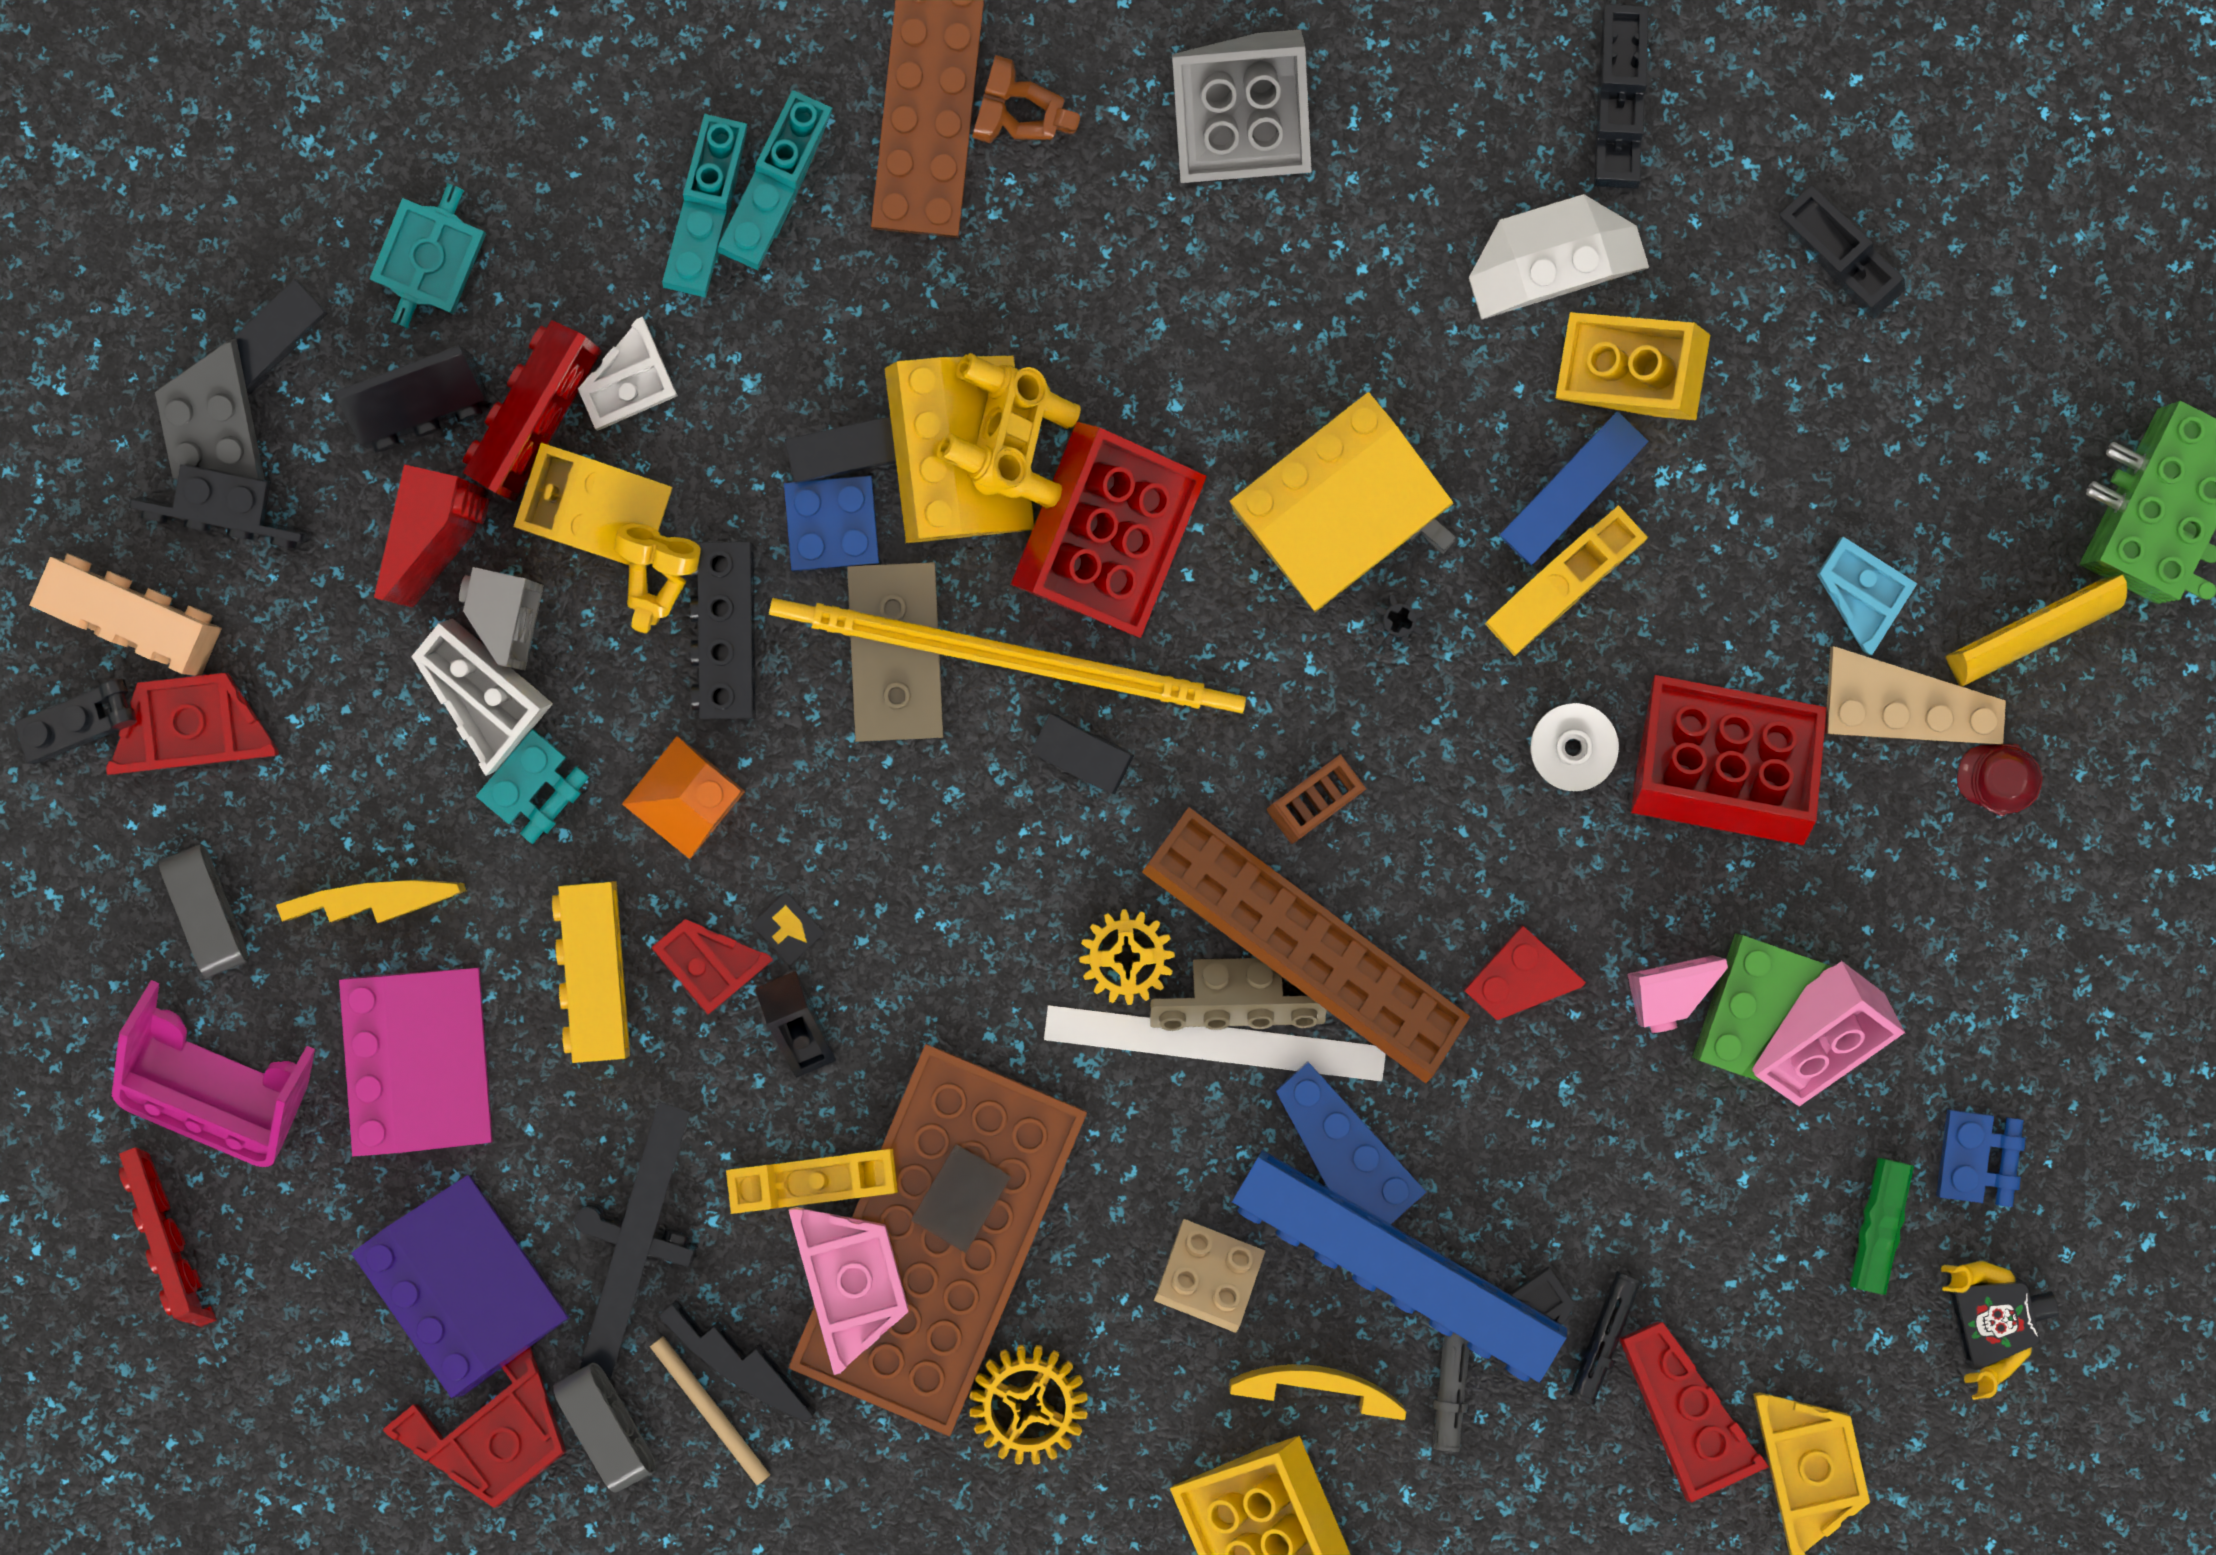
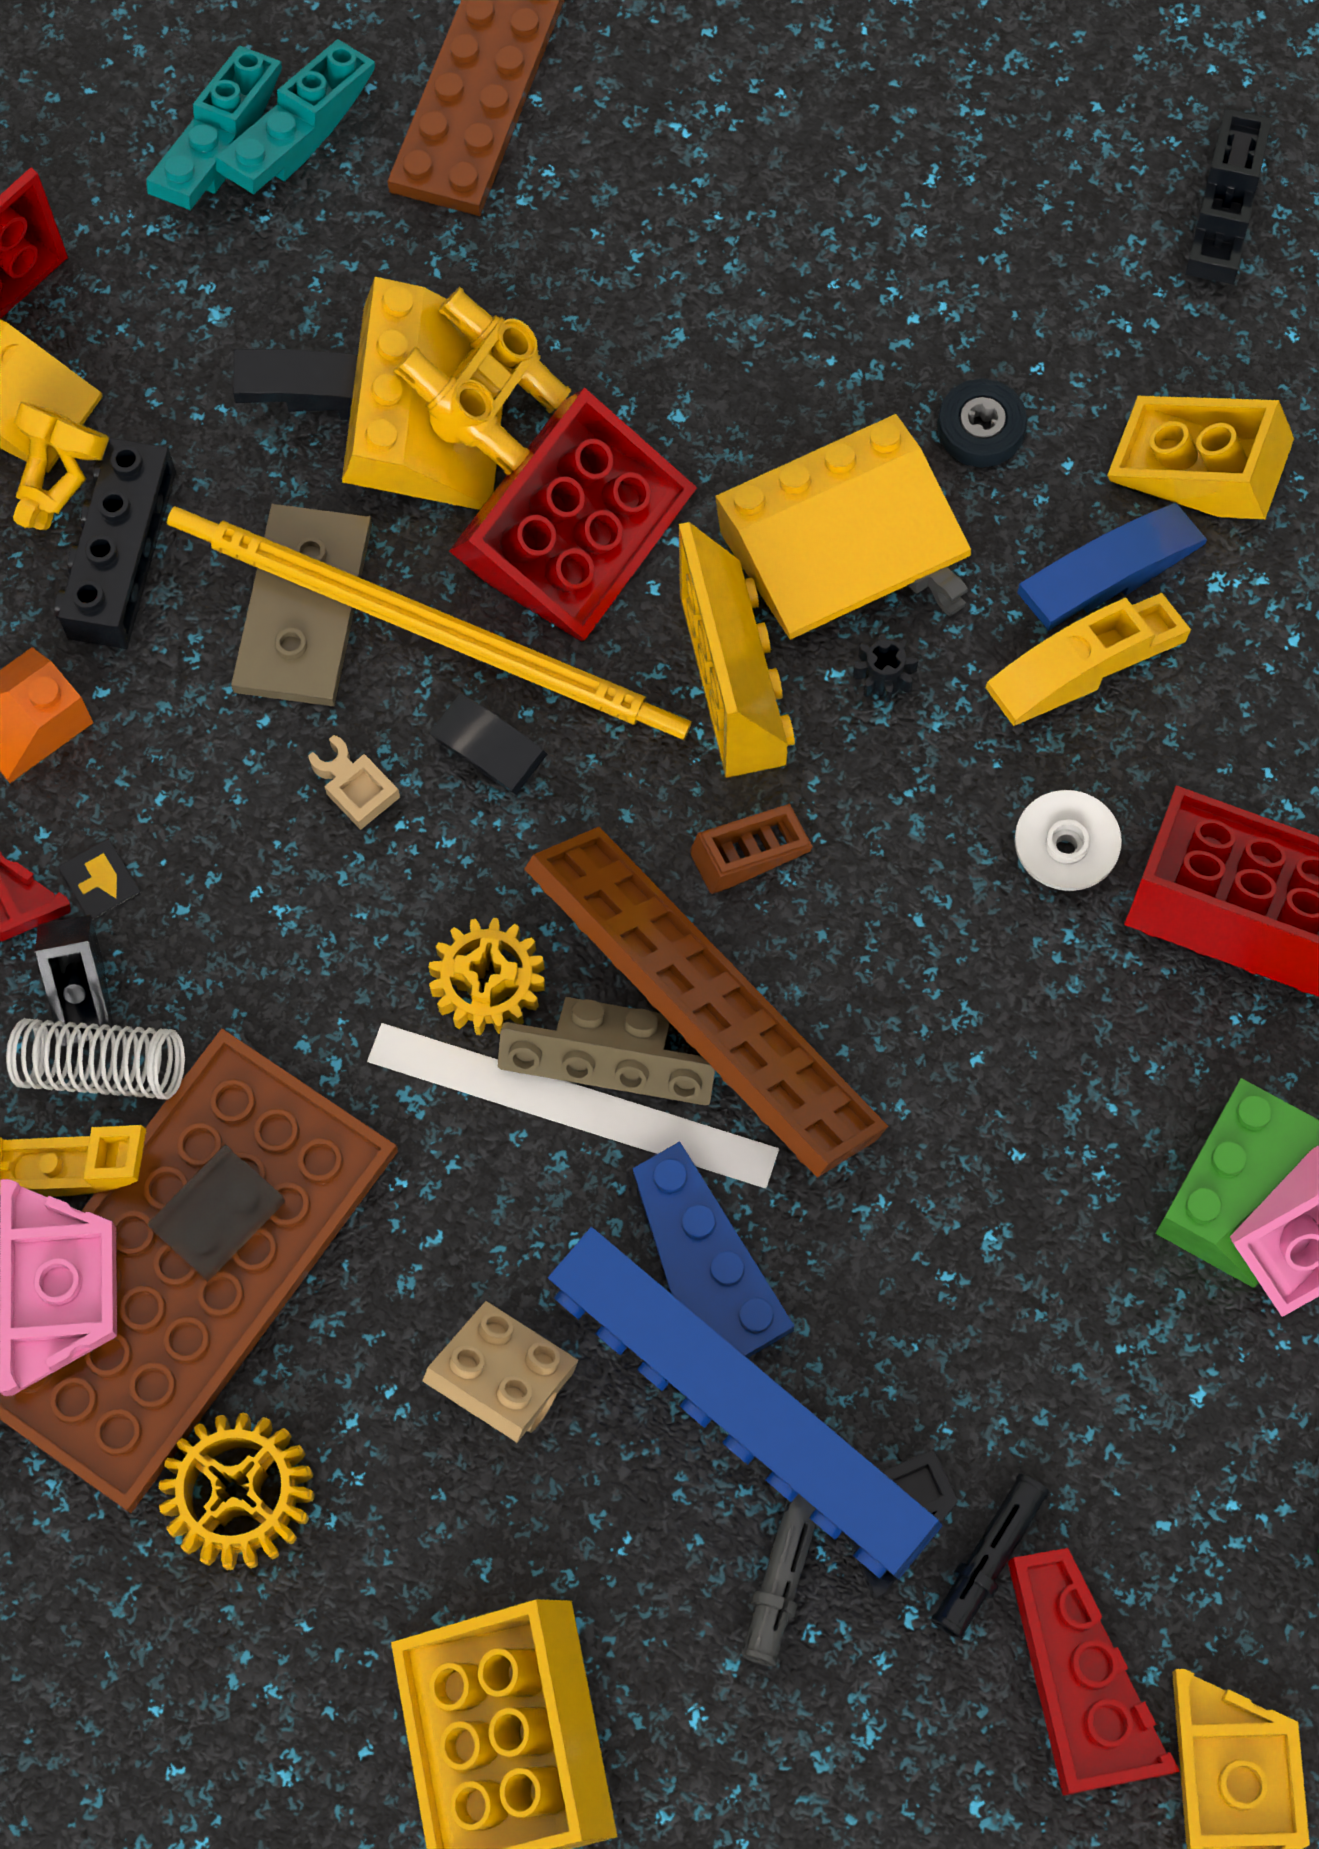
camera: 10 degrees right, 20 degrees down
(627, 380) = (83, 281): white wing -> none
(831, 523) = (266, 460): blue plate -> none
(886, 1094) = (41, 1051): none -> white piece
(983, 813) = (357, 786): none -> tan plate
(994, 113) = (544, 93): dark orange piece -> none
(1243, 108) = (811, 133): light grey slope -> none
(1262, 1385) = (540, 1521): yellow slope -> none
(1272, 645) = (731, 656): none -> yellow slope
(1445, 345) = (991, 402): none -> black bush
(1521, 977) = (959, 1093): red wing -> none
(1554, 254) = (1129, 334): white wedge -> none
(1673, 990) = (1143, 1129): bright pink slope -> none

